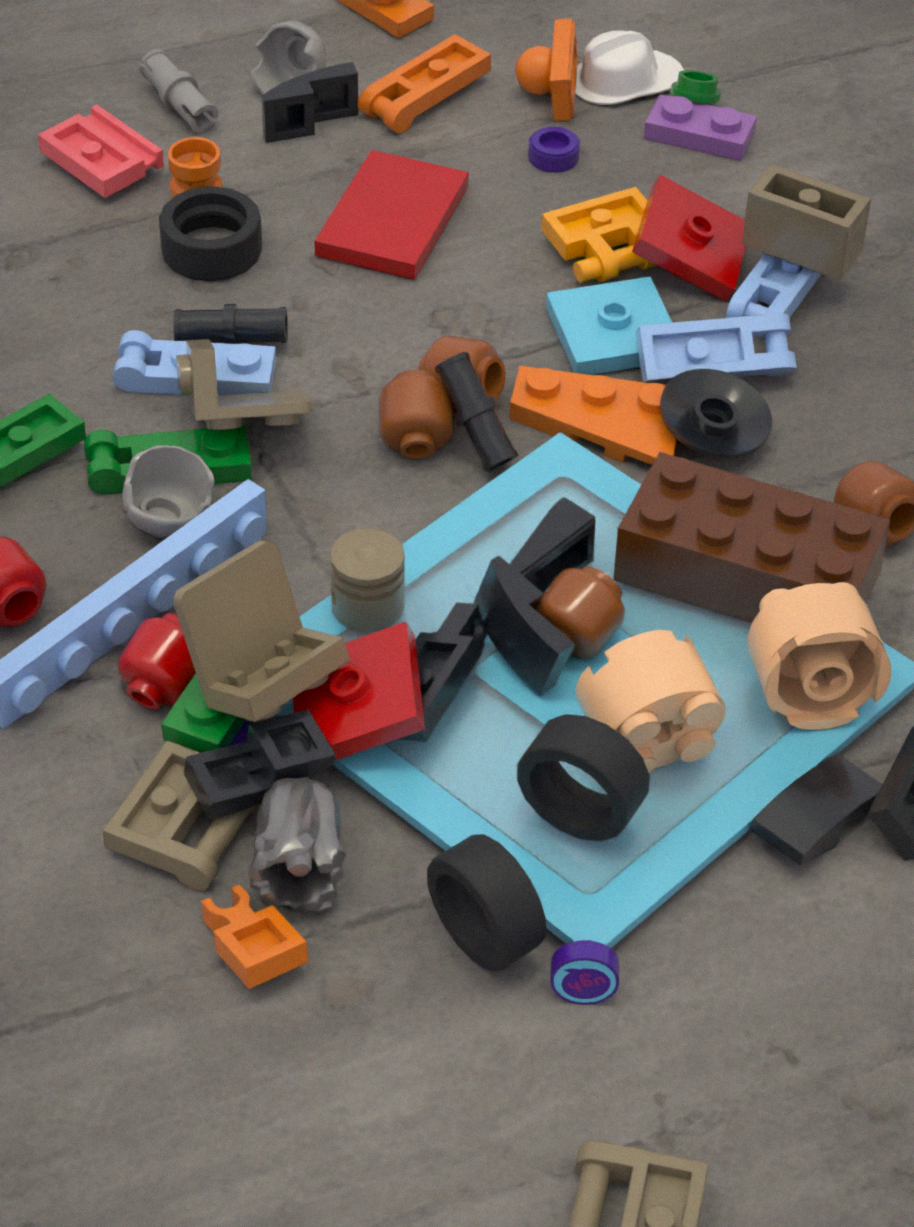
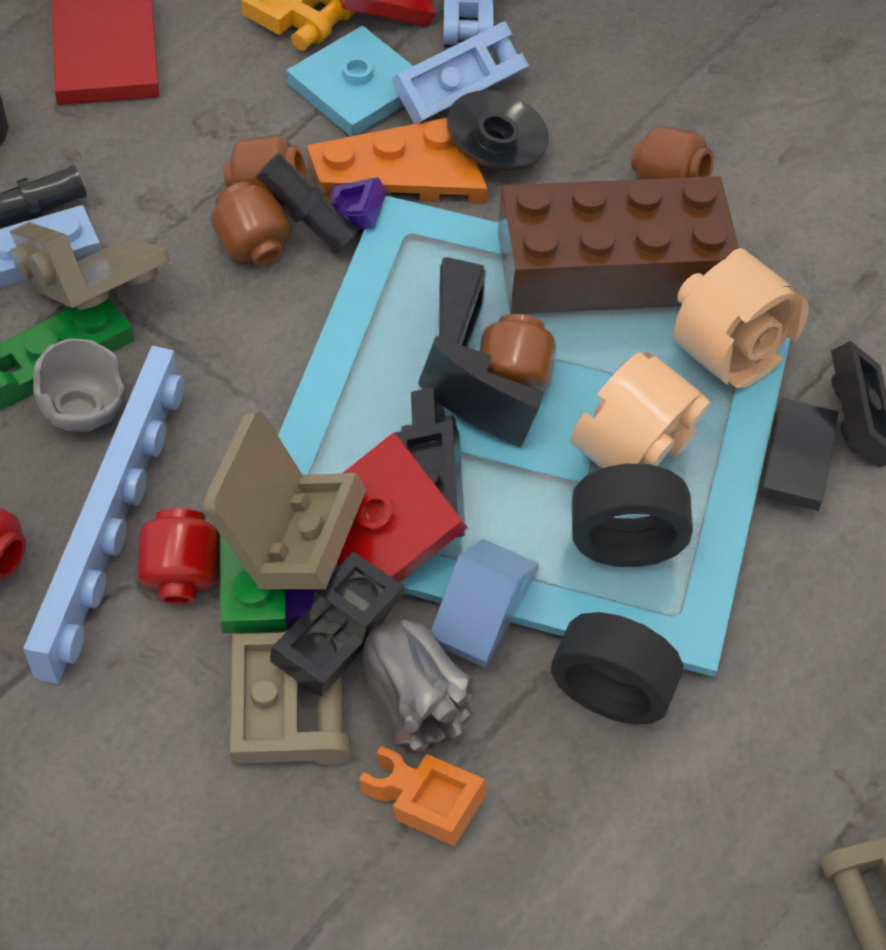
camera: 30 degrees left, 10 degrees up
(367, 579) = (320, 401): dark tan piece -> none
(407, 799) = (482, 600): none -> medium blue slope
(535, 431) = (360, 201): none -> dark purple tile
(584, 972) = (722, 691): dark purple tile -> none

